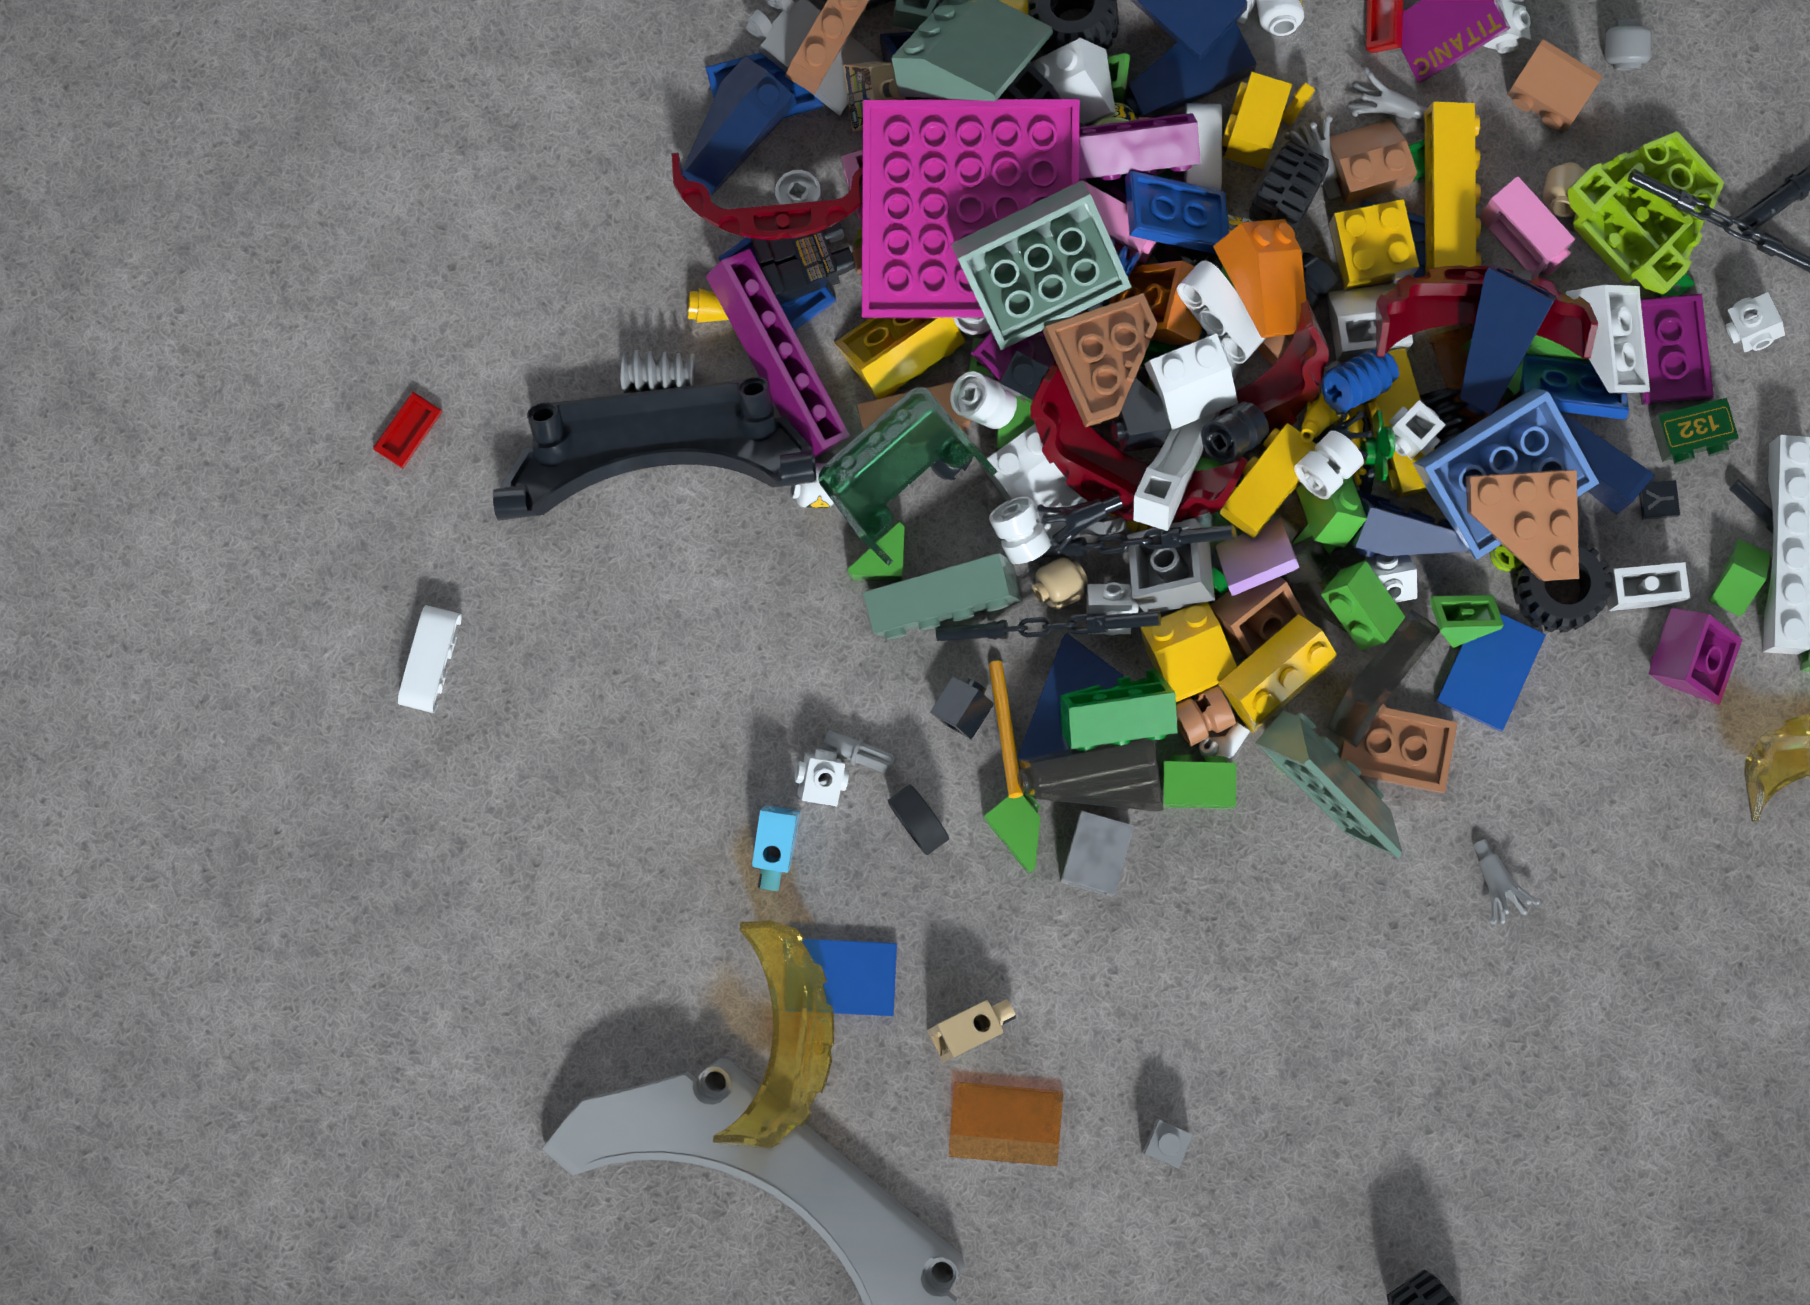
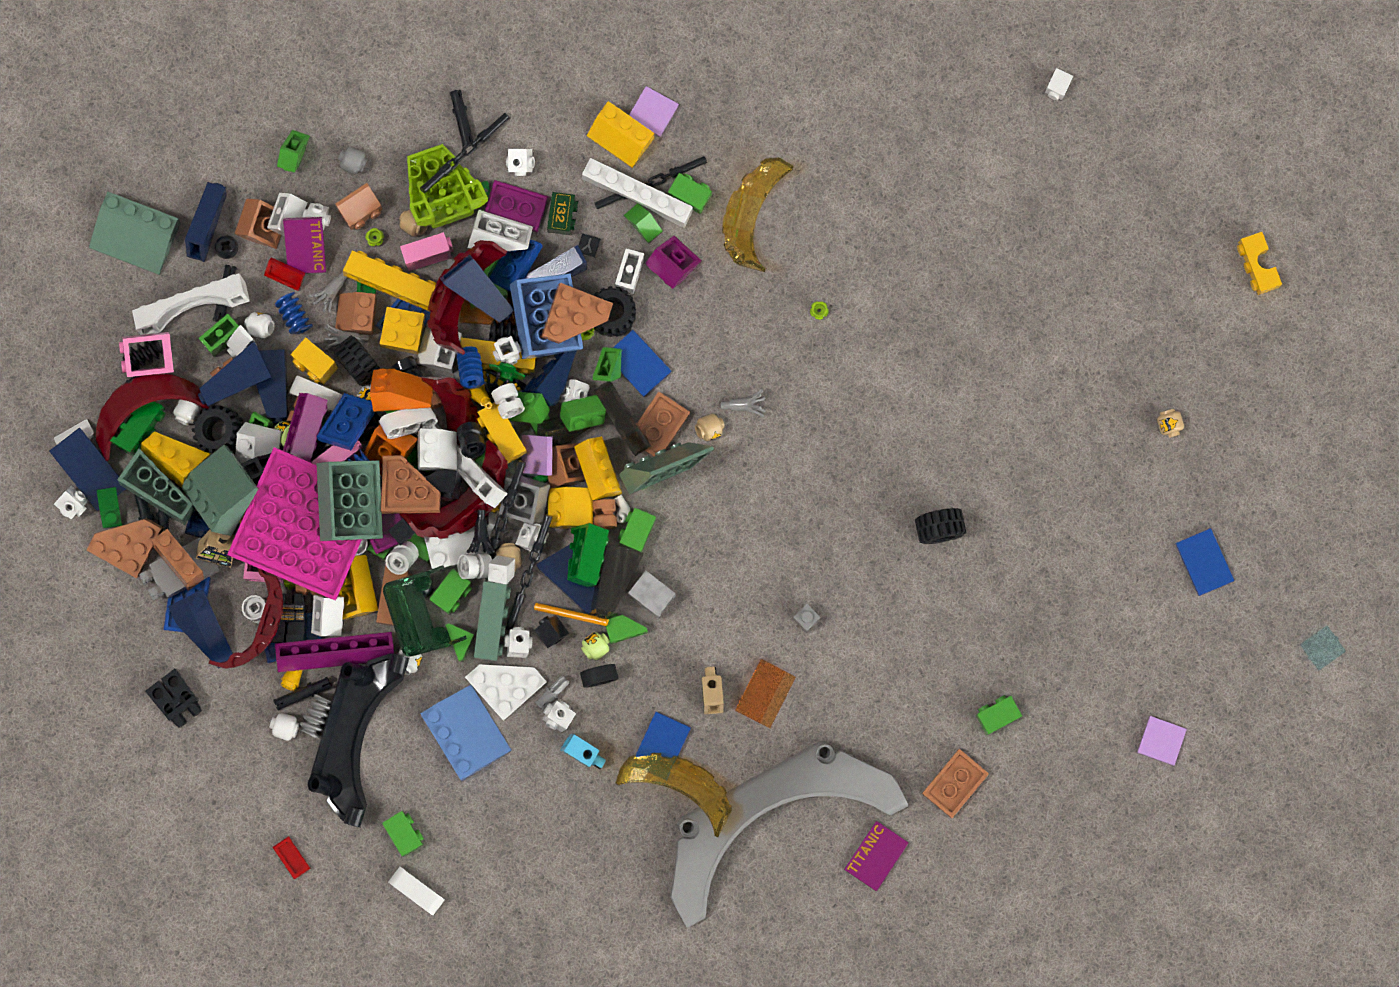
camera: 75 degrees left, 0 degrees up
(518, 597) = (403, 833): none -> bright green brick
(597, 129) = (174, 705): none -> black hips
(621, 327) = (284, 726): none -> white head
(689, 335) = (302, 693): none -> black pin
(730, 632) = (465, 732): none -> medium blue slope
(834, 320) = (327, 616): none -> white brick
(837, 668) = (505, 686): none -> white plate
(908, 662) = (518, 642): none -> white brick
(959, 510) = (450, 592): none -> bright green brick
(968, 793) = (595, 646): none -> yellowish green head
(1031, 576) = (501, 569): none -> white brick
(1302, 98) = (312, 337): yellow tile -> none
(1322, 53) = (292, 315): none -> blue piece
(1432, 836) = (709, 427): none -> tan head
(1520, 132) = (374, 232): none -> lime plate
(1732, 943) = (819, 305): none -> lime plate

